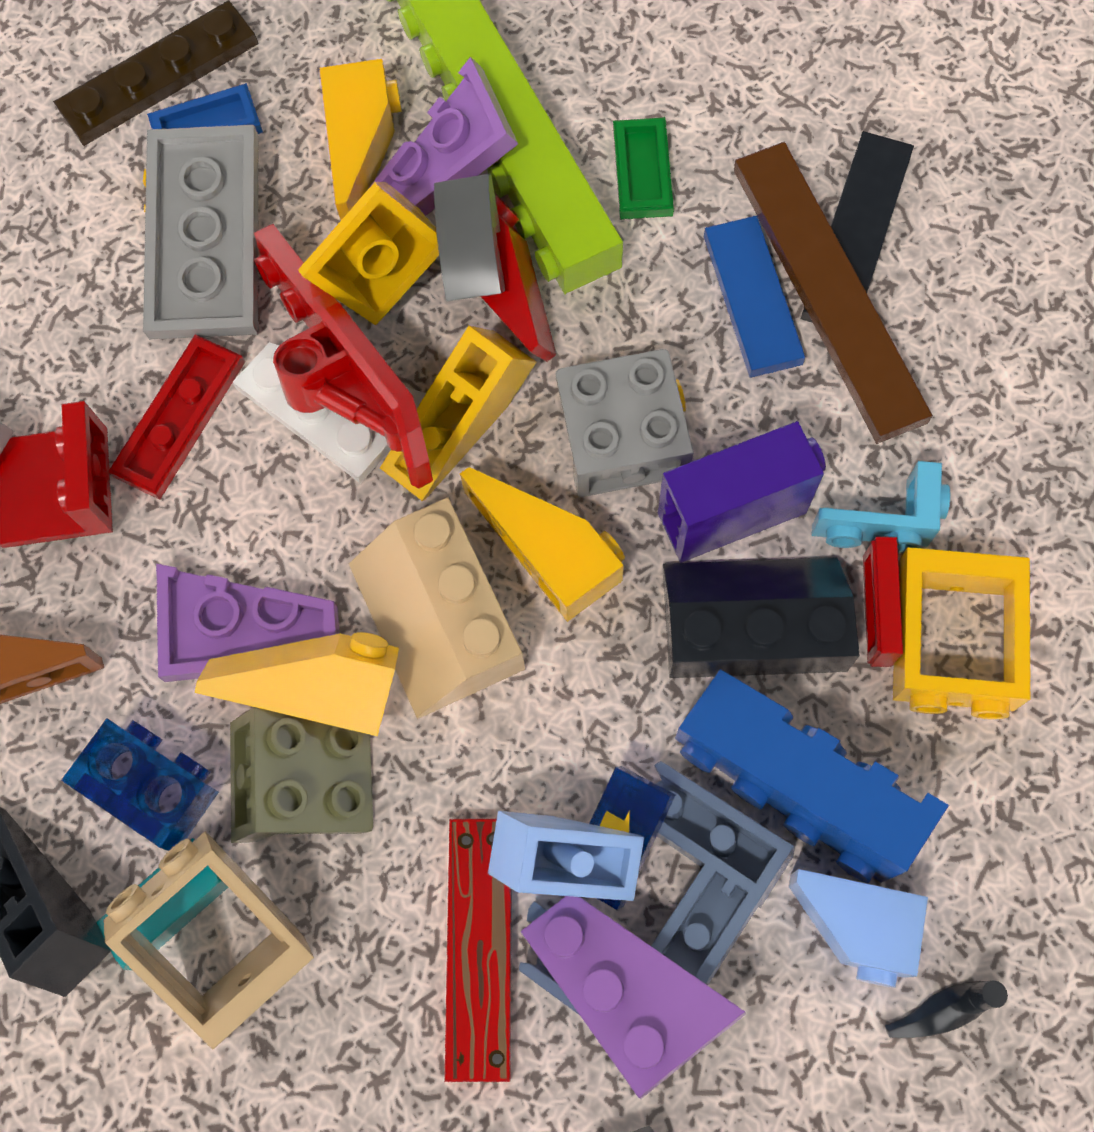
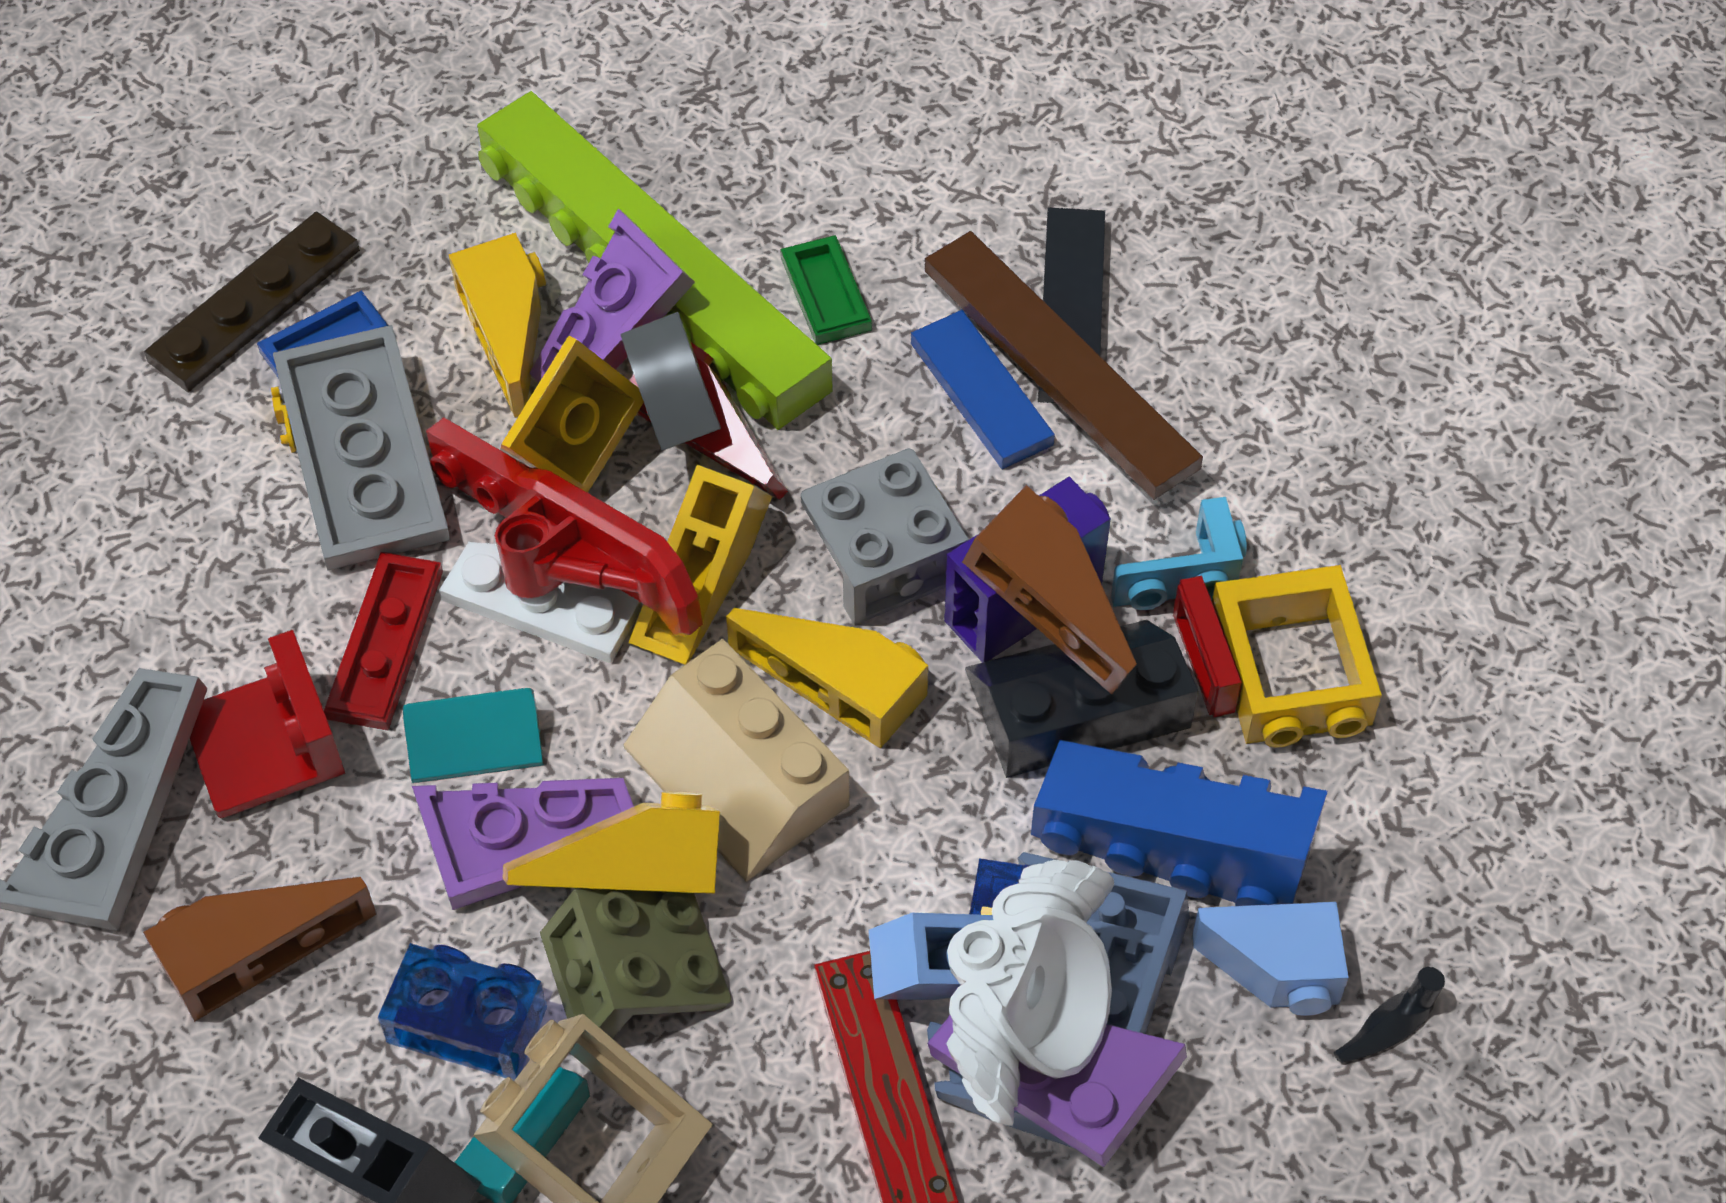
camera: 20 degrees left, 15 degrees down
(224, 525) = (472, 735): none -> teal slope
(609, 937) = (1030, 984): none -> white piece
(747, 525) = (1047, 576): none -> dark orange slope

